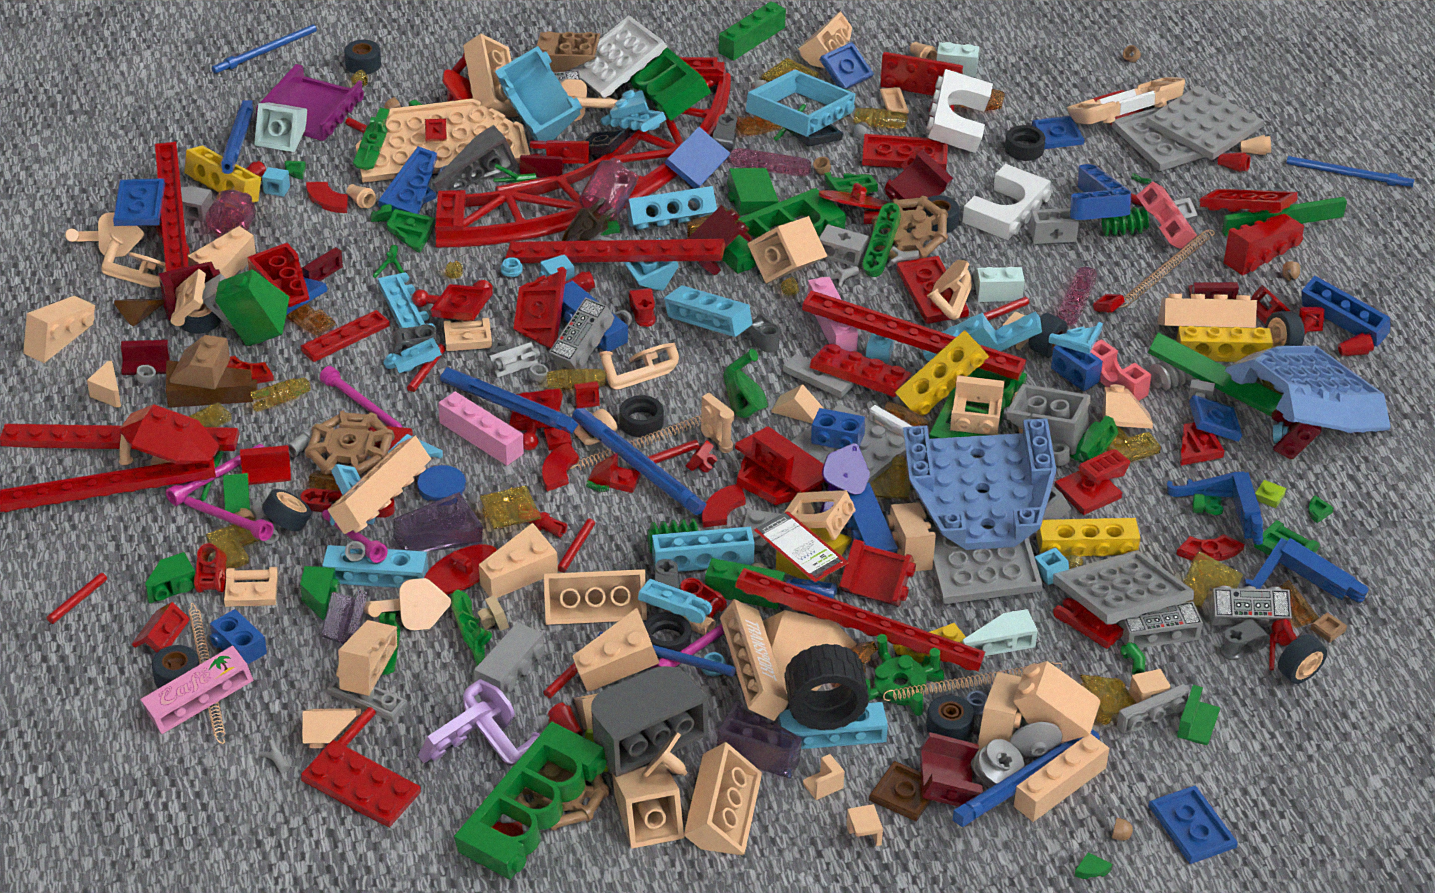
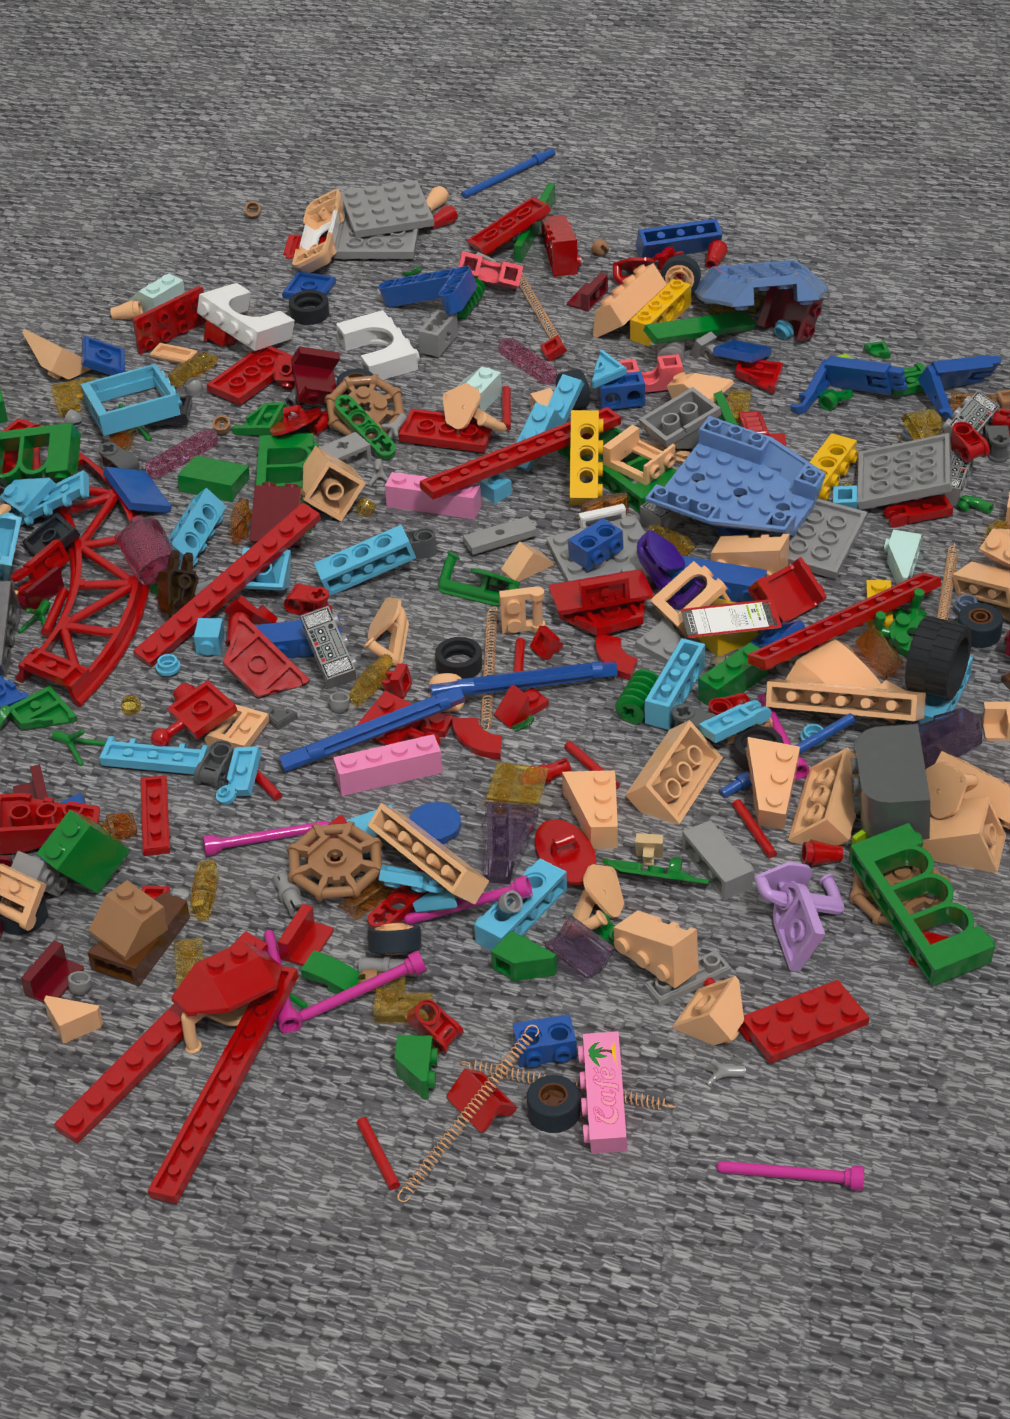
camera: 55 degrees left, 0 degrees up
(197, 614) = (468, 1114): none -> light nougat piece
(203, 875) = (852, 1177): none -> dark pink piece
(251, 592) = (479, 1012): light nougat plate -> none
(514, 359) = (306, 708): light grey hinge -> none
(606, 289) = (257, 616): none -> red slope
(860, 369) = (518, 507): red plate -> none
(1193, 608) = (968, 442): none -> red piece
(1217, 548) = (881, 420): red tile -> none

